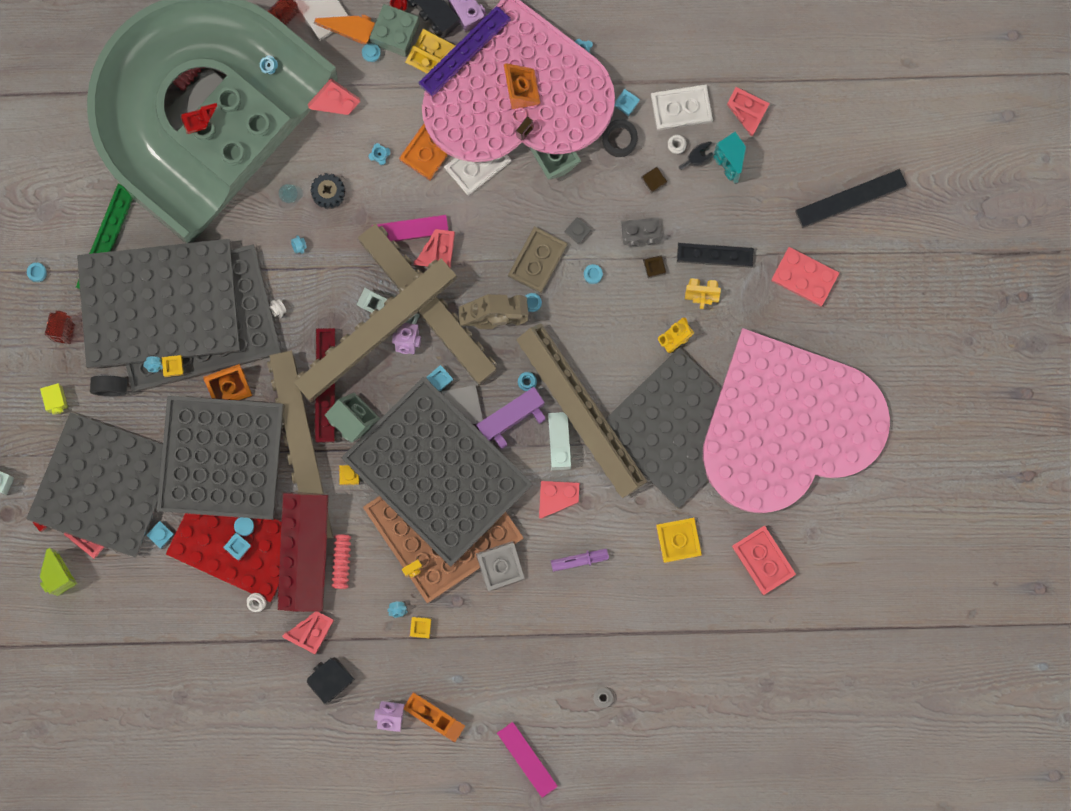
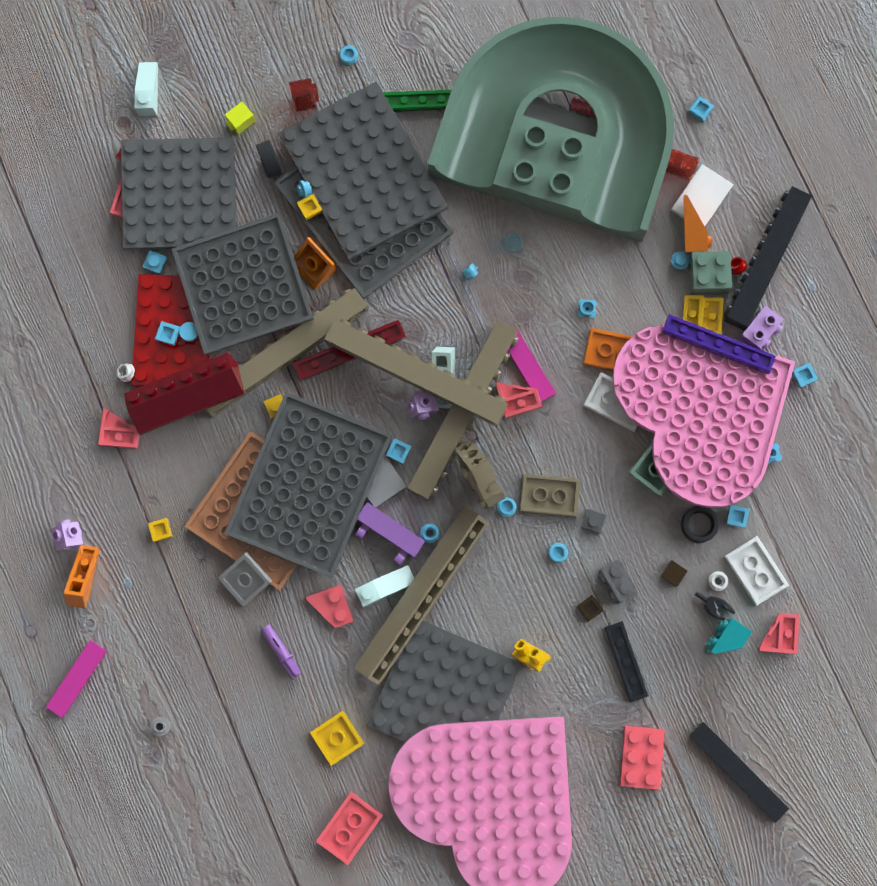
camera: 70 degrees right, 0 degrees up
(55, 574) = (82, 185): lime slope -> none
(198, 119) = (541, 128): red slope -> none
(273, 65) = (621, 169): medium azure plate -> none
(277, 308) = (403, 277): white plate -> none
(329, 679) = (80, 467): black torso -> none
(331, 197) = (529, 283): black wheel -> none
(334, 99) = (620, 245): coral wing -> none
(341, 561) = (192, 432): coral piece -> none
(351, 417) = (327, 386): sand green brick -> none
(397, 609) = (168, 501): medium azure plate -> none
(412, 569) = (208, 500): yellow plate -> none
(521, 86) = (706, 409): orange slope -> none
(525, 128) = (666, 430): dark brown tile -> none
(702, 294) = (581, 665): yellow hips -> none

